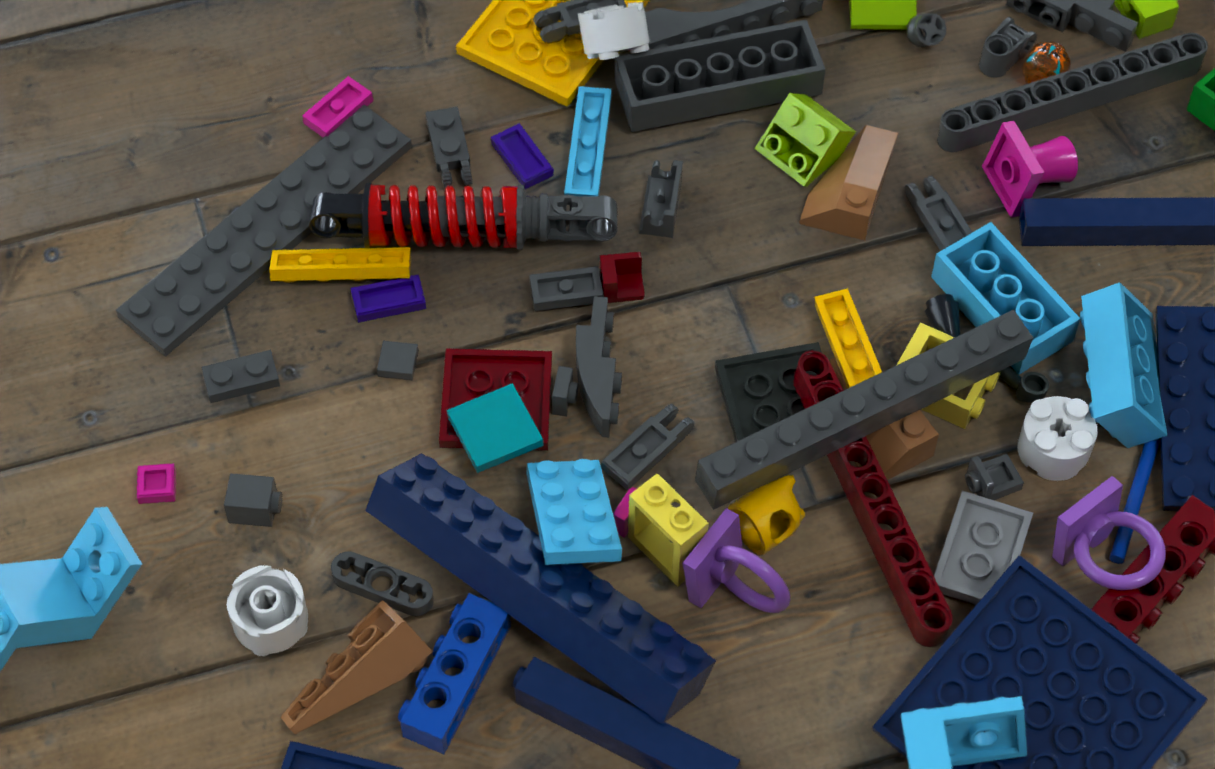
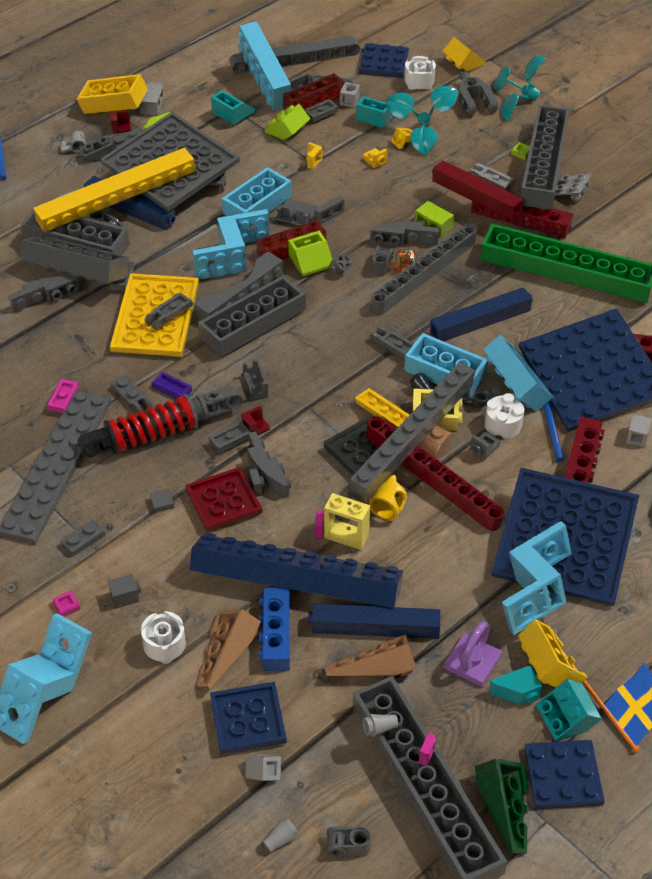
camera: 25 degrees left, 10 degrees down
(340, 264) = (107, 466): yellow plate -> none
(376, 569) = (198, 599): dark grey beam -> none
(388, 298) = (139, 474): dark purple tile -> none
(495, 428) = (232, 510): teal tile -> none
(573, 512) = (295, 531): medium azure plate -> none
(588, 141) = (202, 366): medium azure plate -> none
(614, 30) = (192, 310): white brick -> none
(646, 447) = (311, 493): dark grey hinge -> none
(716, 560) = (378, 527): medium lavender tile -> none
(804, 138) = (309, 330): lime slope -> none
(851, 187) = (344, 344): medium nougat wedge -> none
(980, 546) = (496, 476): light grey plate -> none
(1018, 169) = (420, 306): dark pink plant -> none
(1091, 523) = (542, 444): medium lavender tile -> none

